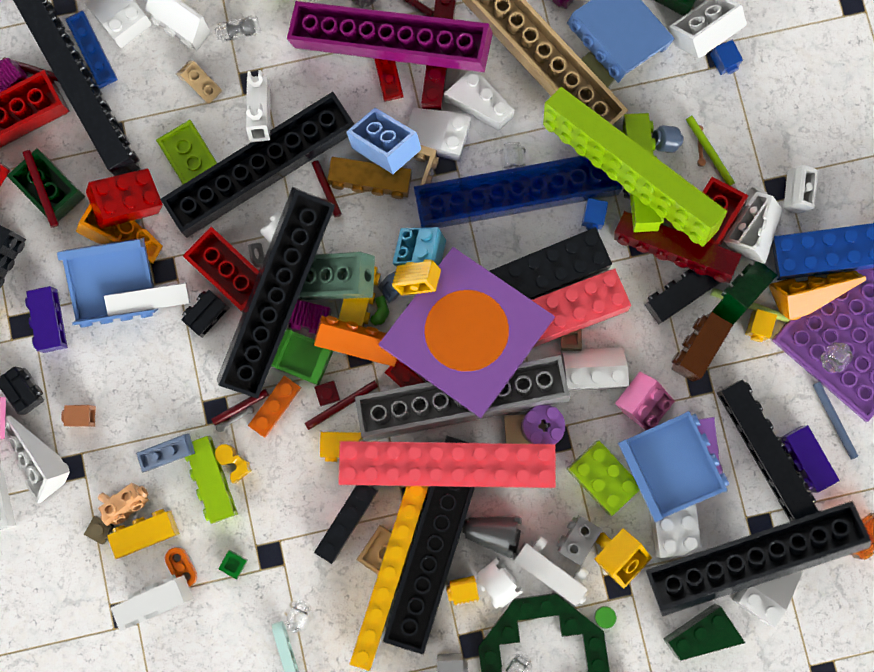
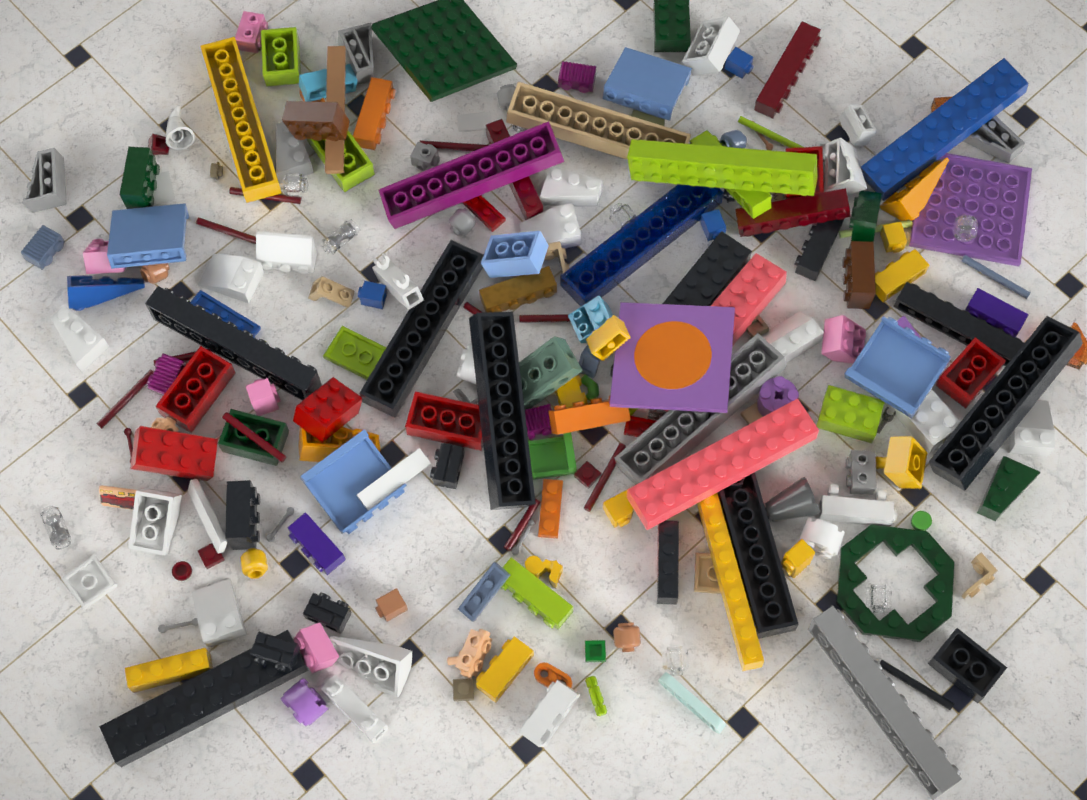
camera: 30 degrees left, 15 degrees down
(14, 288) = (270, 537): none -> light grey hinge
(74, 151) = (263, 396): none -> bright pink brick
(210, 605) = (596, 696): none -> lime axle
(233, 104) = (372, 294): none -> blue brick
(268, 568) = (627, 636): none -> nougat head
(359, 76) = (462, 221): none -> light grey head
(378, 216) = (544, 318): none -> dark red bar
(635, 500) = (886, 418): none -> clear smoke hand
(741, 365) = (896, 274): none -> yellow brick
(745, 505) = (970, 373): none -> red brick
(770, 90) = (787, 70): none -> dark red brick

